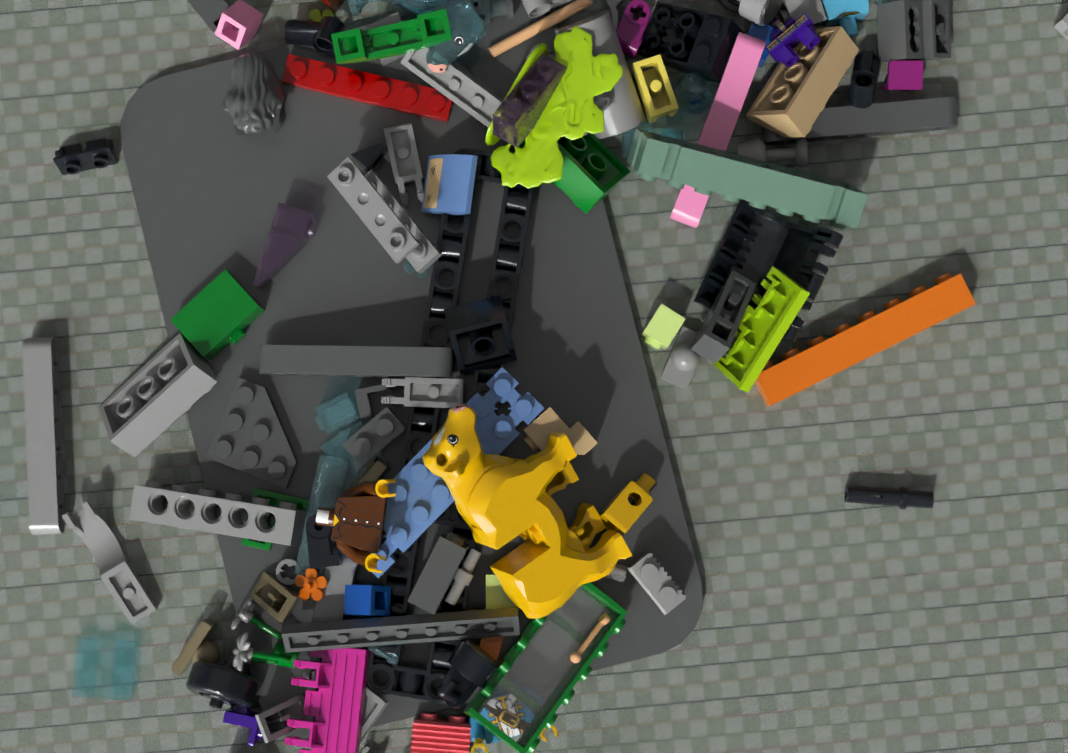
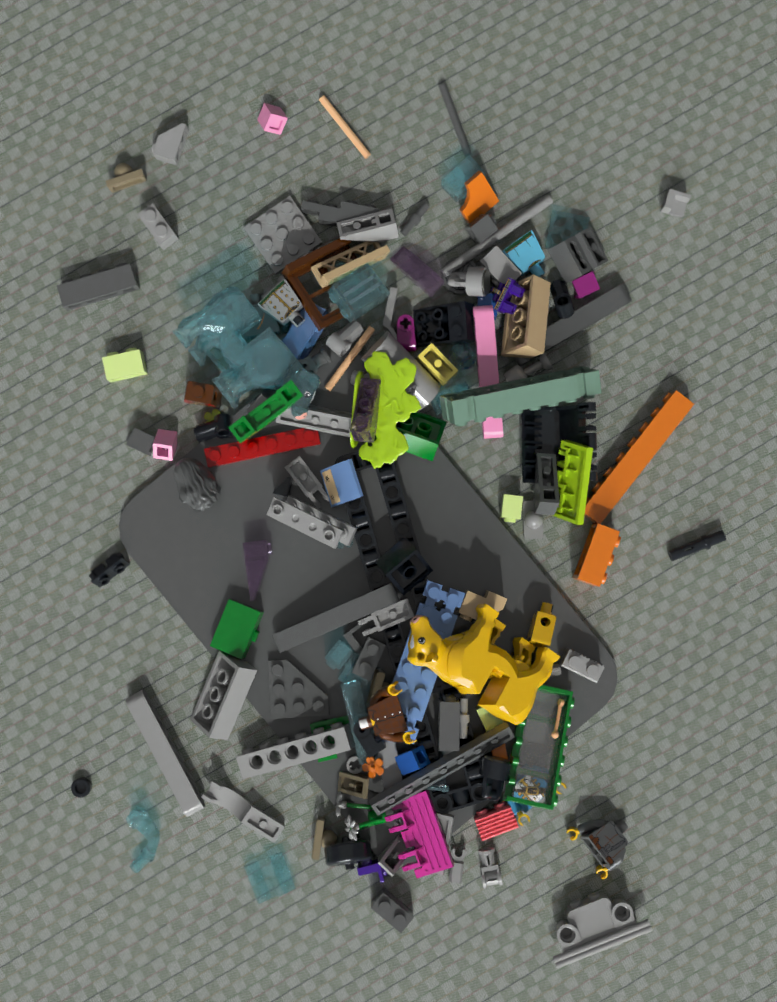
camera: 20 degrees left, 0 degrees up
(748, 444) = (597, 555): none -> orange brick

